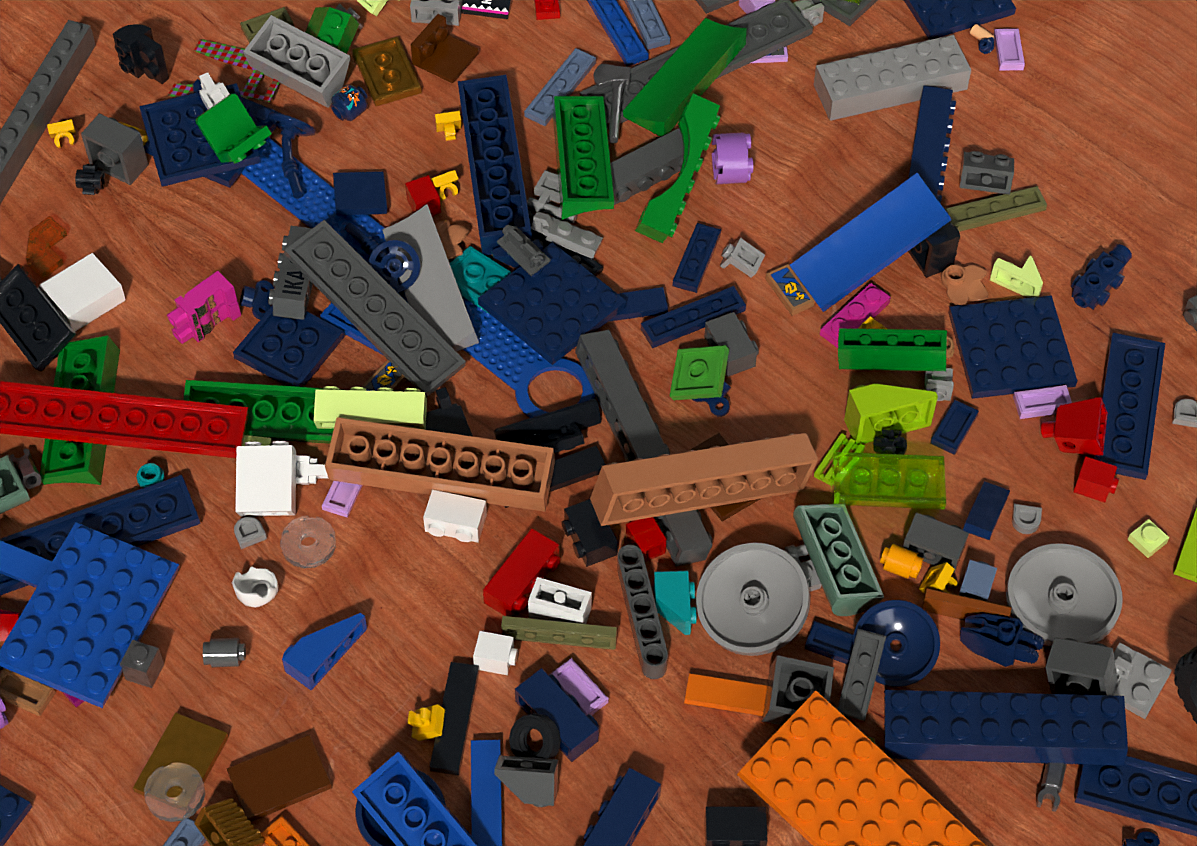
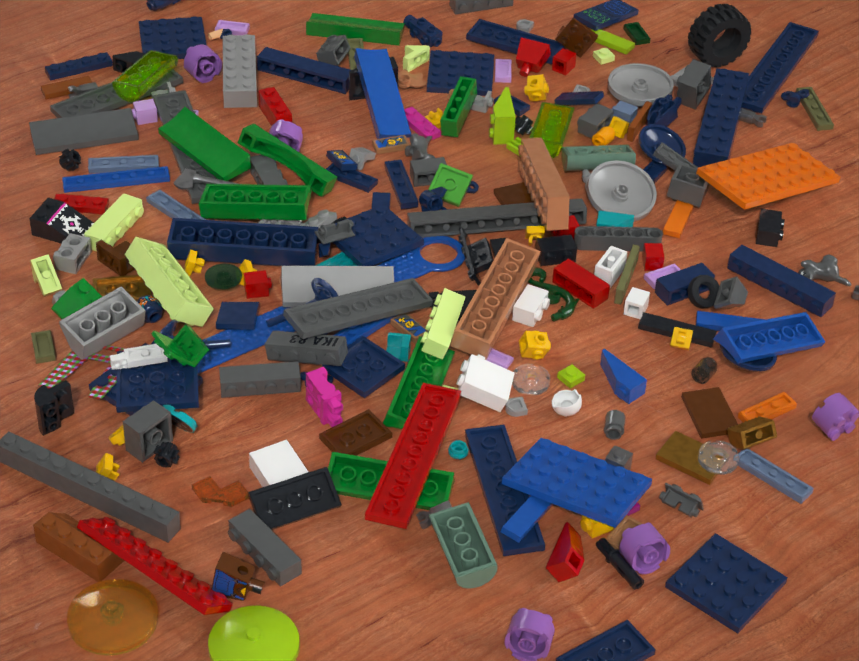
camera: 80 degrees left, 15 degrees down
(94, 750) = (689, 502): none -> dark grey hinge
(140, 173) = (182, 420): none -> teal tile
(163, 361) = (356, 434): none -> reddish brown tile
(239, 240) = (260, 379): none -> dark grey brick
(323, 590) = (571, 376): none -> lime plate
(334, 375) = (399, 345): none -> teal panel
(361, 759) = (704, 370): none -> clear smoke brick
(362, 530) = (534, 344): none -> yellow brick
(388, 104) = (169, 282): none -> yellowish green brick
(429, 159) = (223, 276): none -> clear green dish
(491, 539) = (554, 295): none -> dark green plant
(507, 28) = (115, 220): none -> yellowish green brick
(609, 664) = (653, 256): none -> red brick
(655, 357) = (431, 199): none -> dark blue brick
(719, 235) = (341, 160): none -> dark blue tile
(781, 320) = (418, 147): none -> dark grey animal
(811, 137) = (273, 106): none -> red brick
(882, 28) = (202, 63): none -> medium lavender brick
(993, 448) = (536, 88): none -> yellow brick
(1073, 192) = (368, 29): none -> green arch
(1153, 480) = (576, 37): none -> reddish brown bracket

